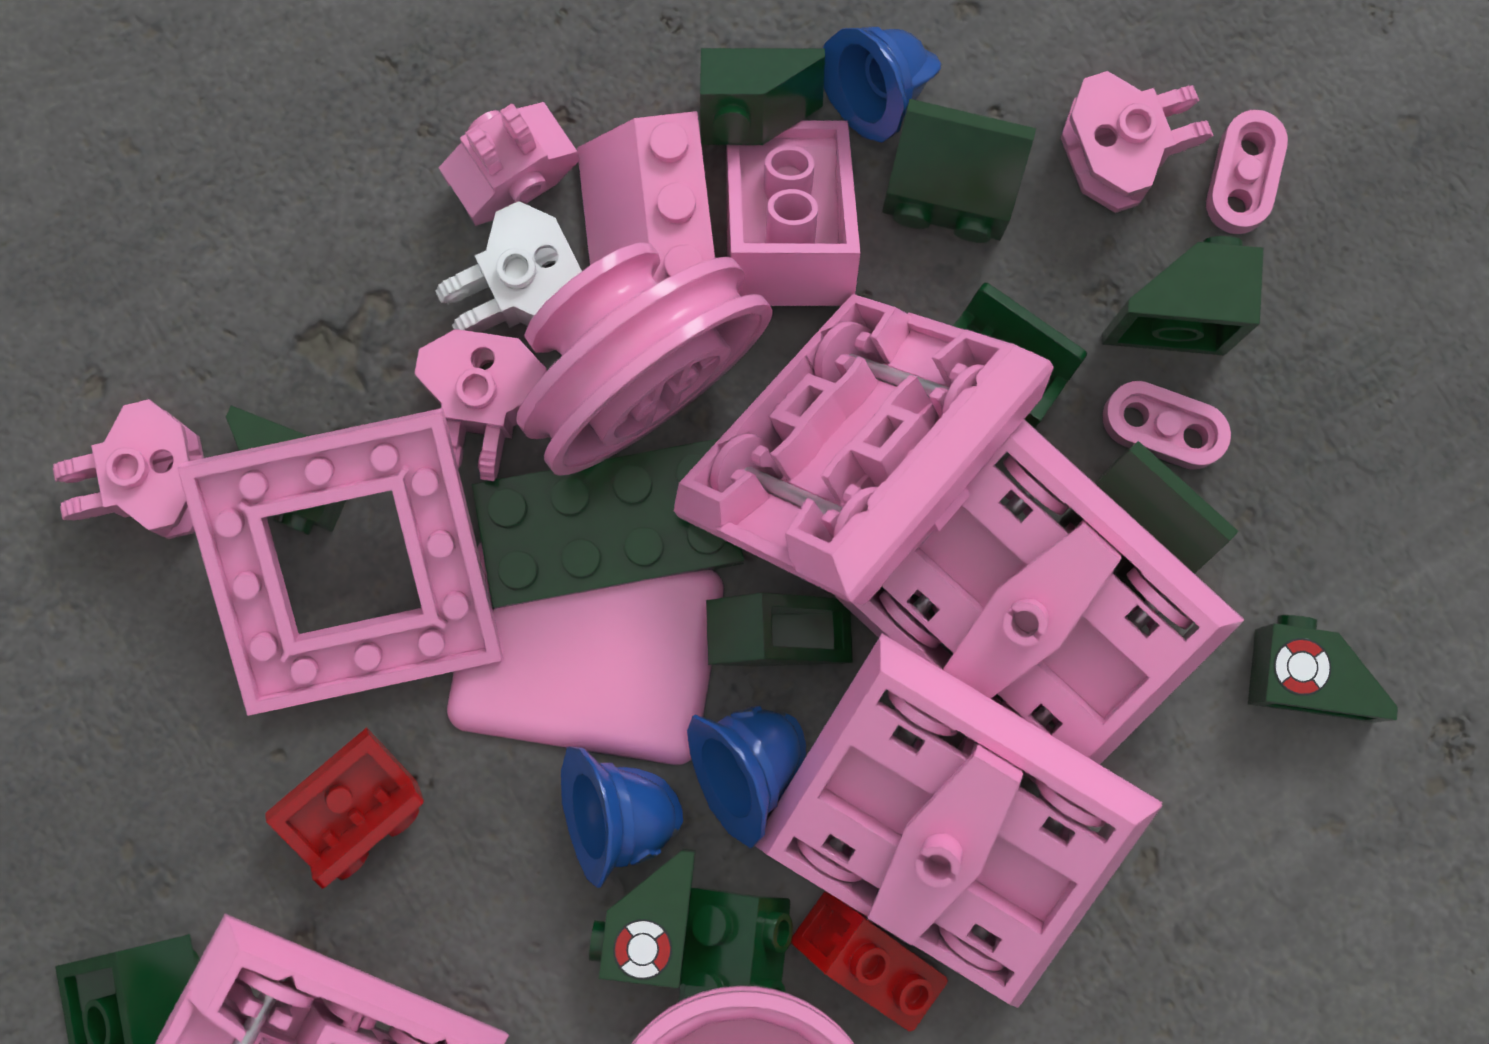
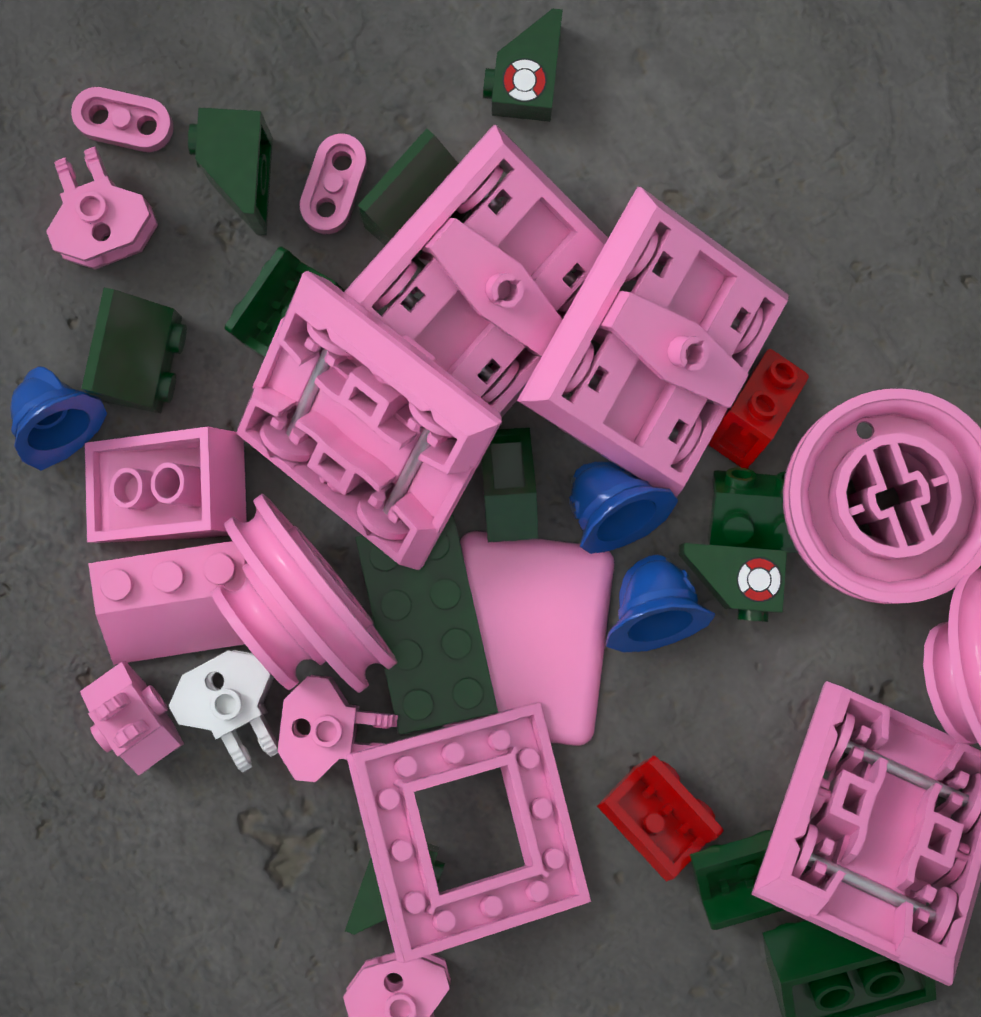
camera: 90 degrees left, 5 degrees up
(262, 891) = (727, 878): none -> dark green bracket
(757, 92) = (66, 517): slope -> none

